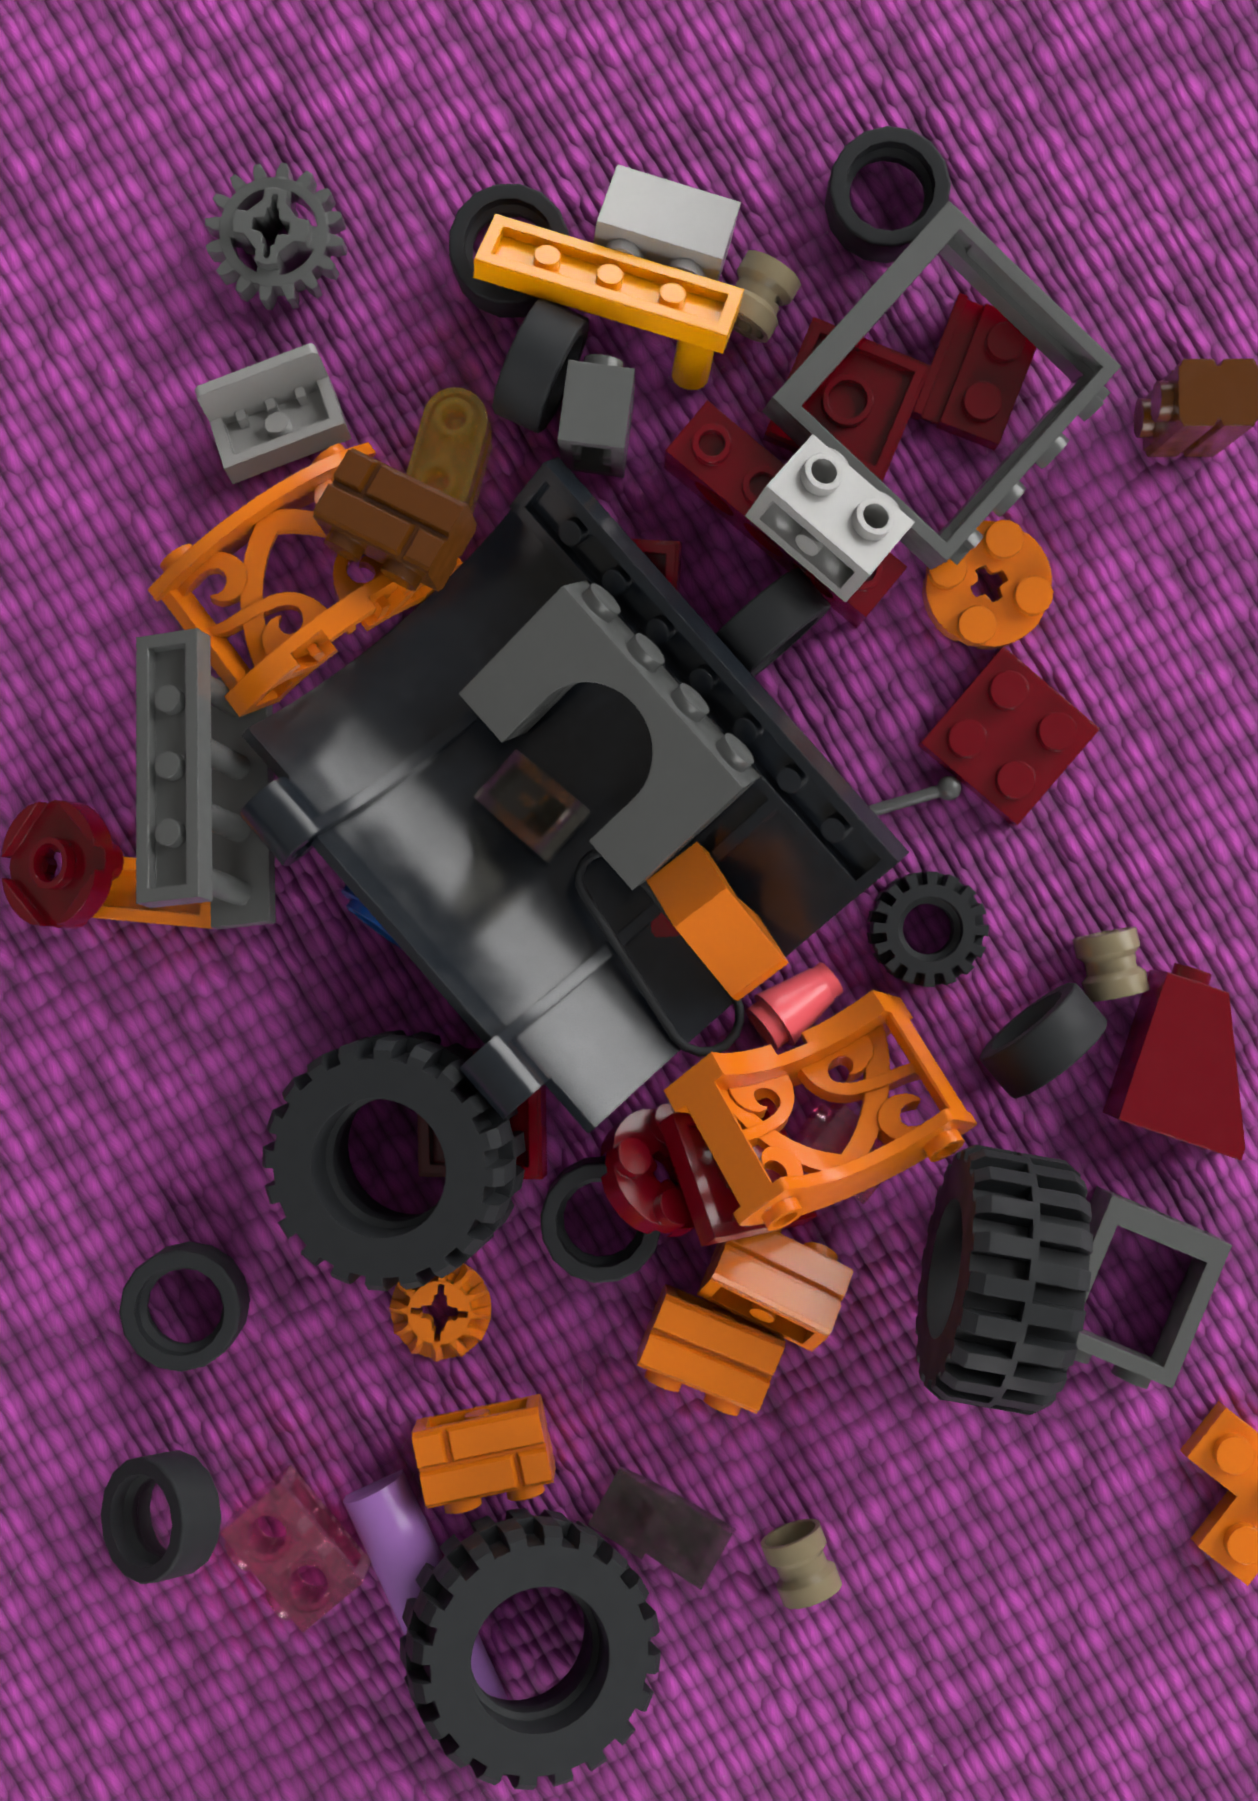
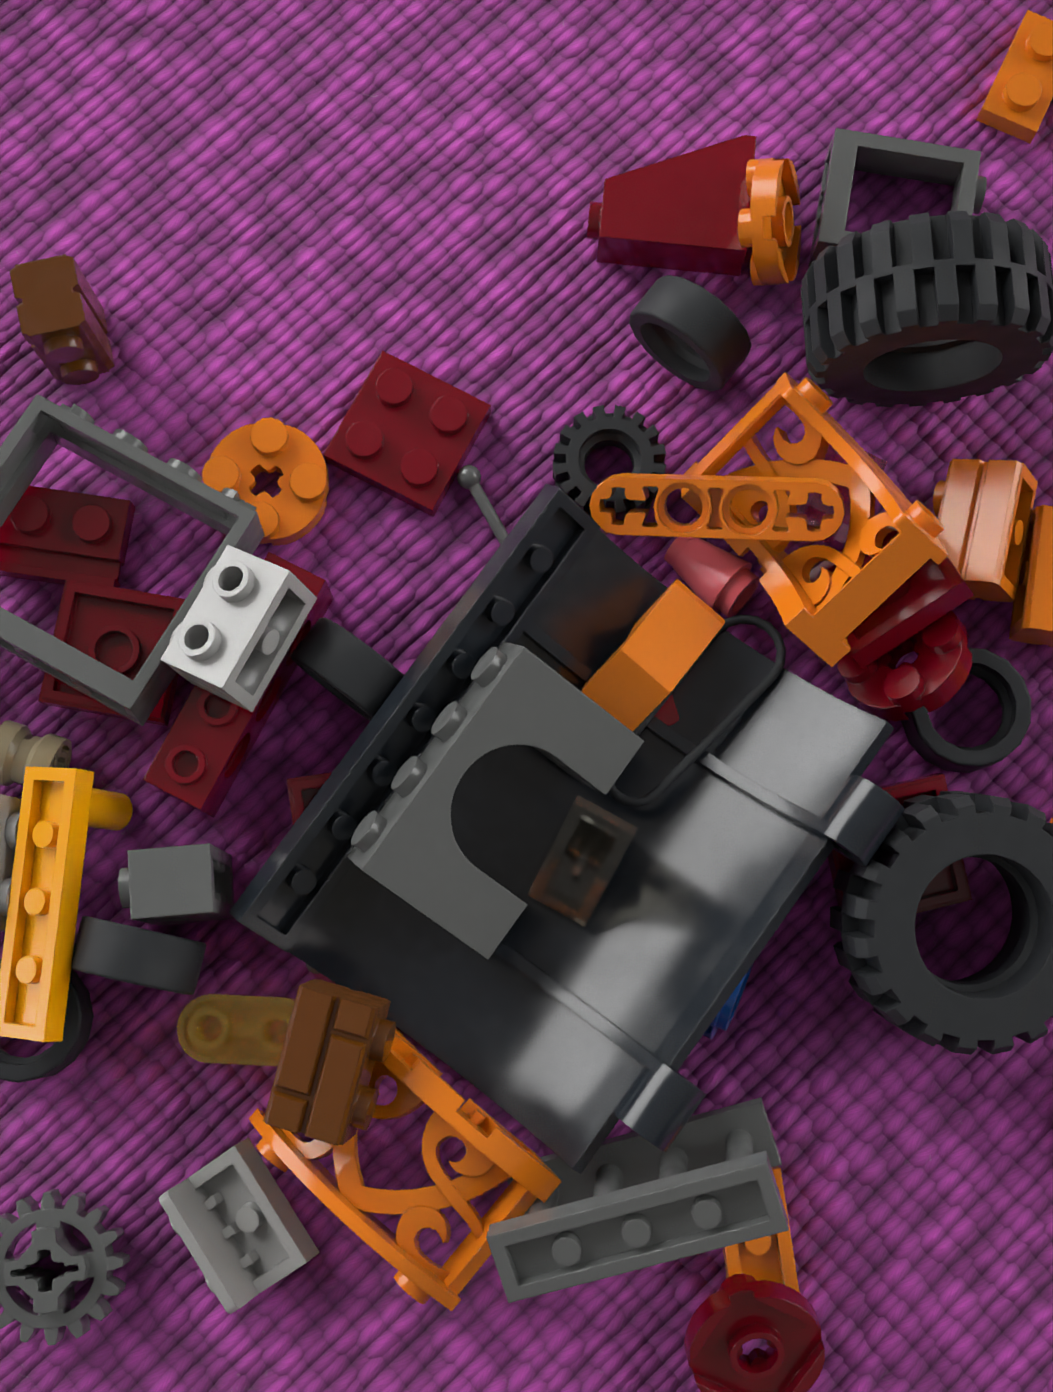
camera: 105 degrees left, 10 degrees down
(862, 1020) = (716, 516): none -> orange beam
(1111, 964) = (601, 292): dark tan wheel -> none
(1139, 1150) = (770, 221): none -> orange plate

